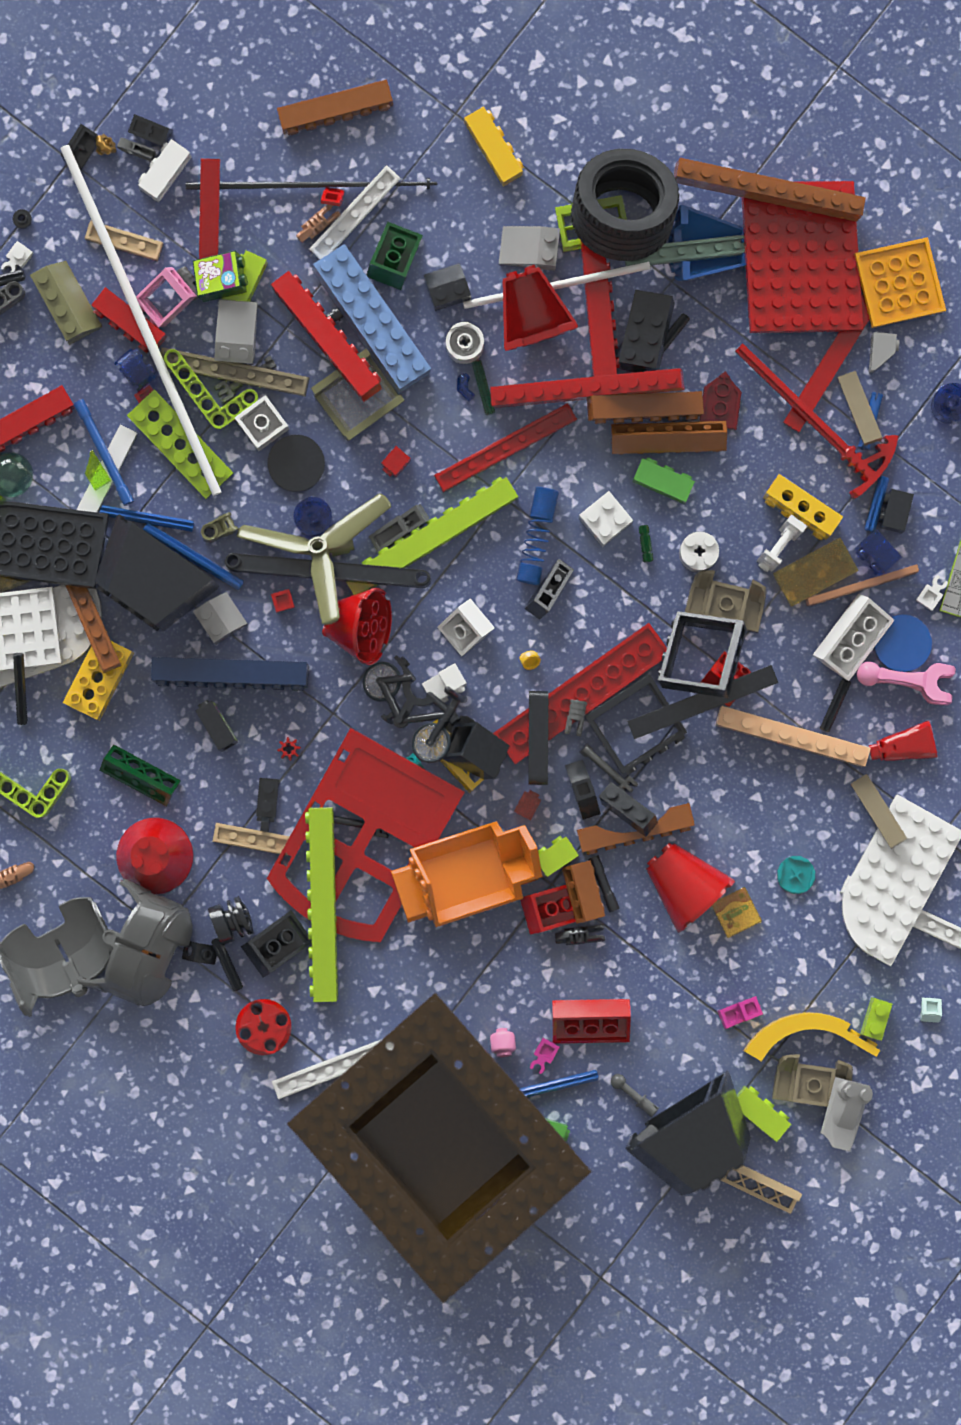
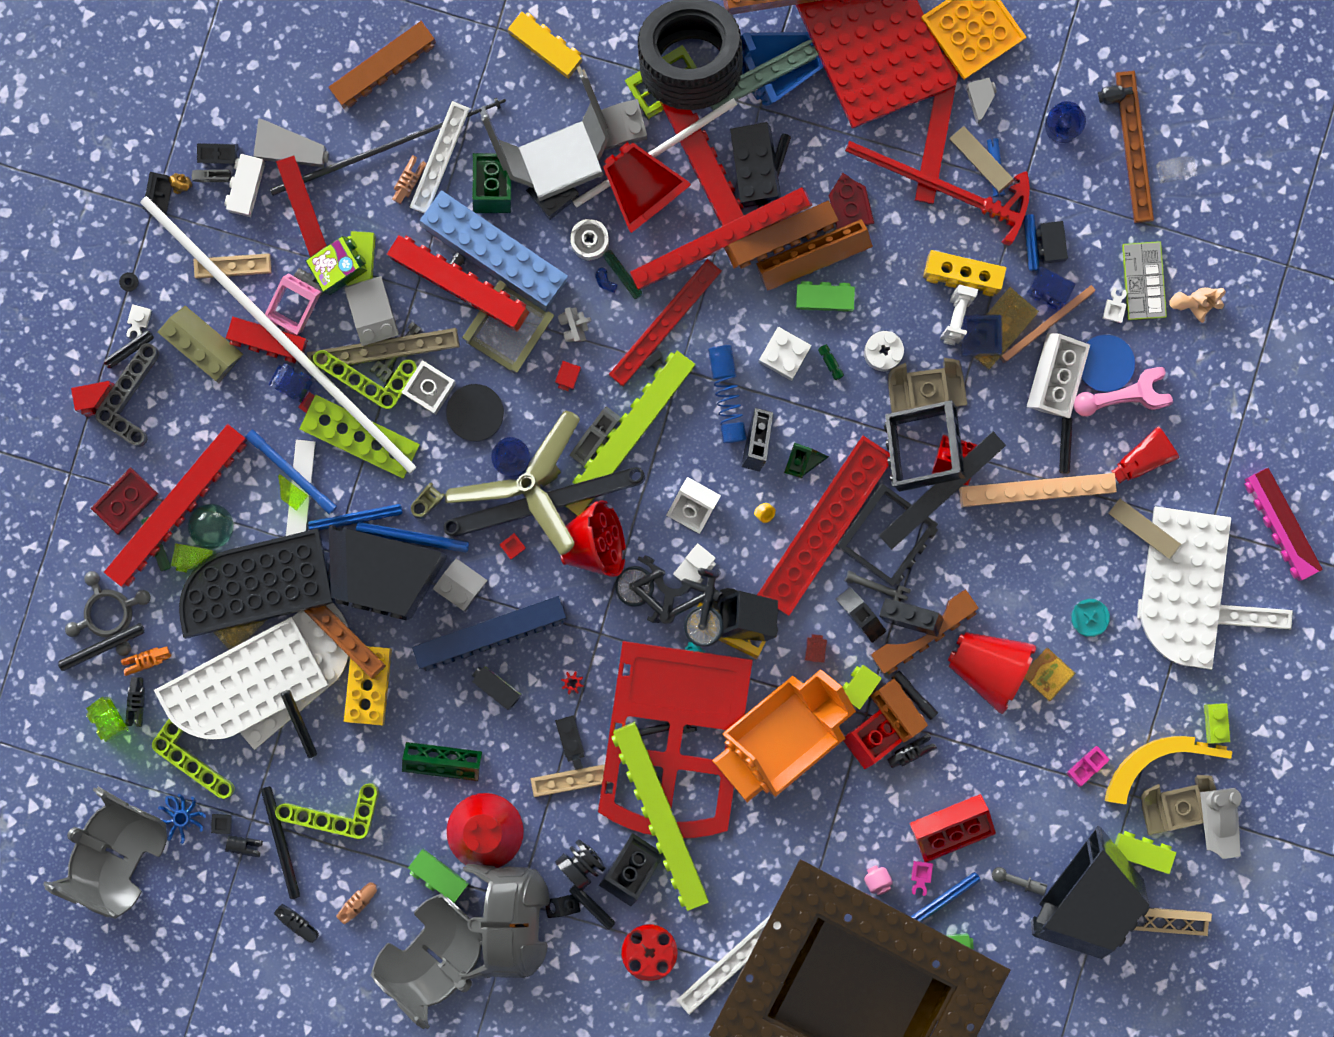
camera: 20 degrees left, 0 degrees up
(94, 879) = (437, 875): none -> bright green brick
(209, 142) = (277, 143): none -> light grey slope
(332, 196) = (413, 150): red slope -> none
(423, 416) = (577, 323): none -> light grey hips
(465, 257) = (559, 158): none -> piece
(481, 478) = (654, 360): none -> black plate
(538, 738) = (801, 582): black beam -> none
(576, 713) = (829, 545): dark grey hinge -> none
(584, 625) = (802, 460): none -> dark green slope
(795, 572) = (982, 335): none -> clear blue brick
(931, 1010) = (1264, 695): light aqua slope -> none

